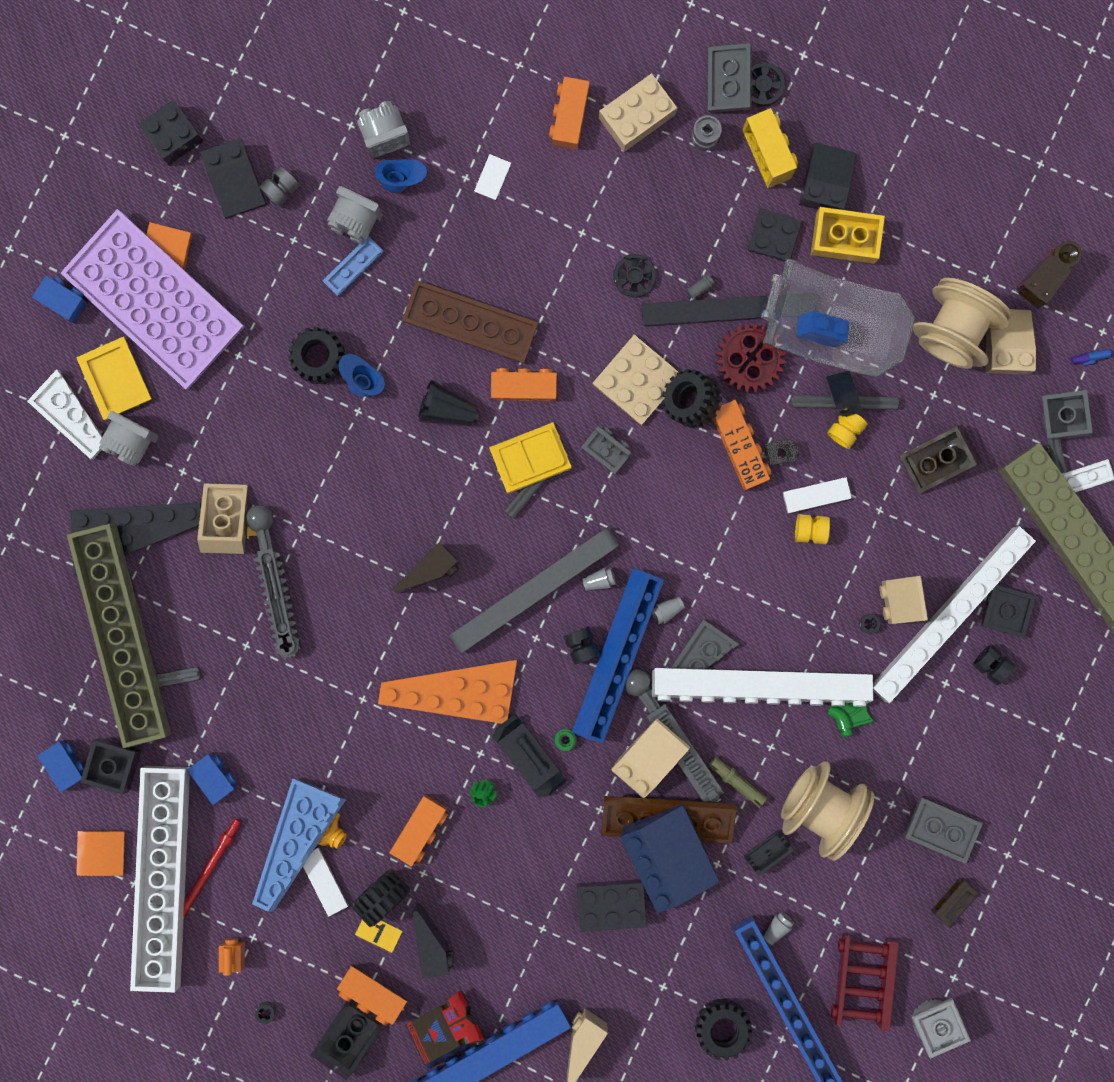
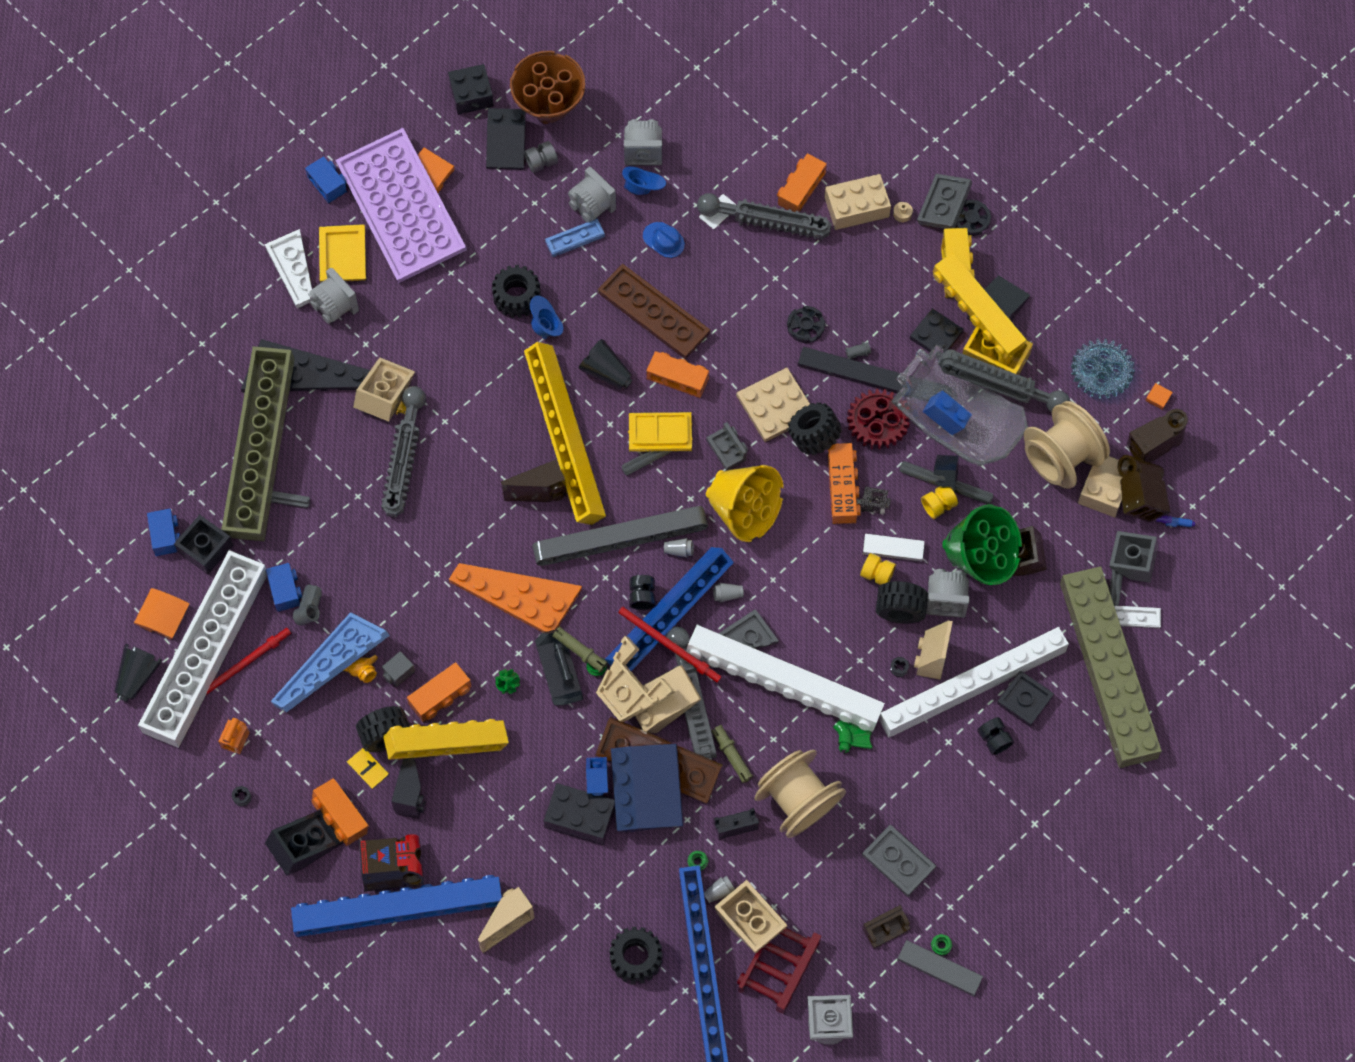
camera: 20 degrees right, 20 degrees down
(101, 927) = (134, 672): none -> black cone
(247, 790) = (308, 608): none -> dark grey piece
(255, 105) = (547, 85): none -> dark orange cone
(324, 883) = (339, 707): white tile -> none
(366, 822) = (397, 669): none -> dark grey brick
(432, 499) = (564, 433): none -> yellow brick
(447, 232) = (664, 239): none -> blue piece
(449, 890) = (445, 739): none -> yellow brick
(482, 175) = (766, 216): none -> dark grey gear
(544, 734) = (581, 650): none -> olive pin
(609, 769) = (624, 692): none -> tan wing
(614, 863) = (597, 775): none -> blue brick
(650, 508) = (747, 499): none -> yellow cone
(675, 709) = (702, 667): none -> red bar
(688, 104) = (902, 212): none -> tan tile
(706, 133) = (908, 235): flat silver wheel -> none
(745, 912) = (698, 855): none -> green plate
(817, 197) = (979, 306): none -> yellow brick
(824, 952) = (750, 917): none -> tan slope
(852, 560) = (901, 602): none -> black tyre
(866, 272) = (997, 379): none -> dark grey gear
(893, 530) = (948, 593): none -> light grey piece
(917, 471) = (985, 545): none -> green cone
(952, 228) = (1102, 368): none -> clear light blue gear
(1021, 899) = (944, 939): none -> green plate
(1021, 923) = (940, 968): none -> dark grey tile
(1029, 220) = (1159, 396): none -> orange tile
(1053, 337) = (1142, 489): none -> dark brown piece

